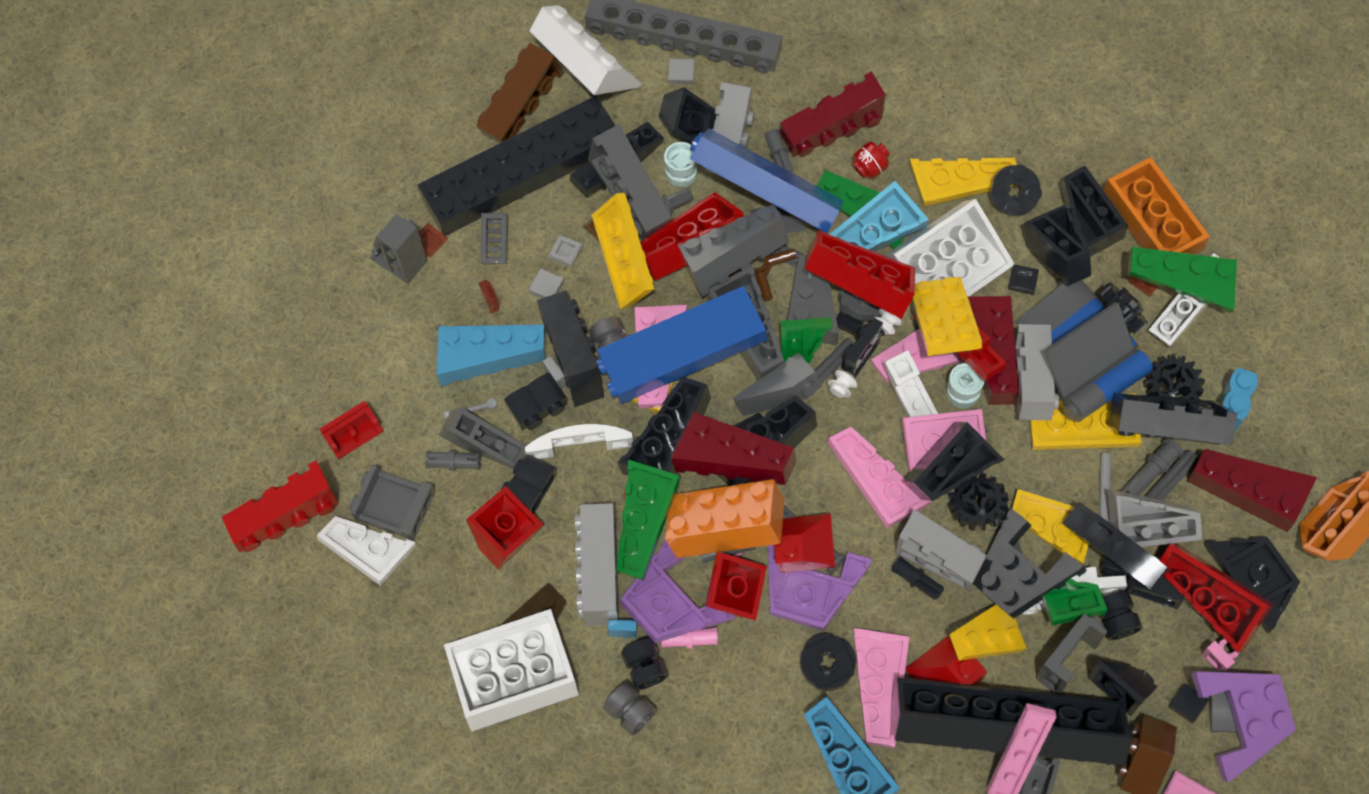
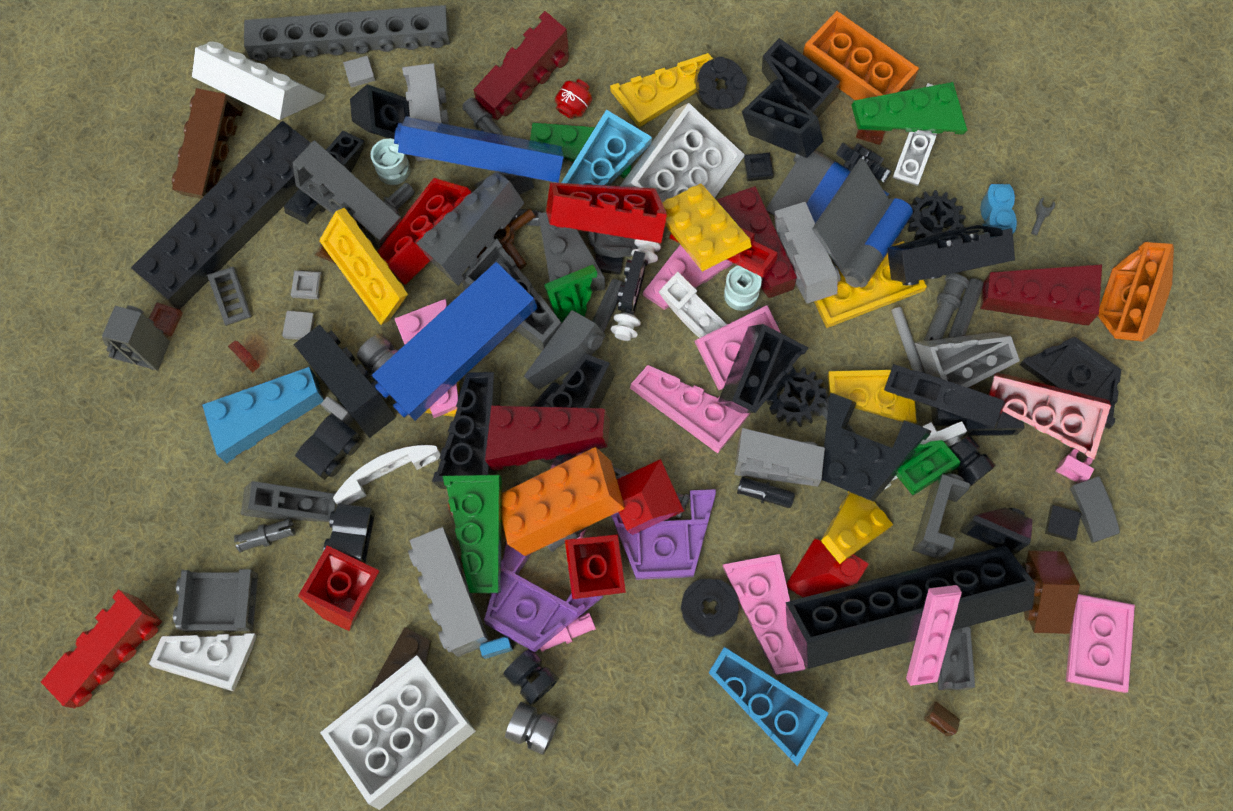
camera: 20 degrees left, 5 degrees up
(351, 430) = (148, 541): red hinge -> none
(491, 404) = (284, 463): light grey hinge -> none
(1258, 713) = (1132, 510): medium lavender wing -> none
(1283, 412) = (1042, 212): none -> dark grey hand

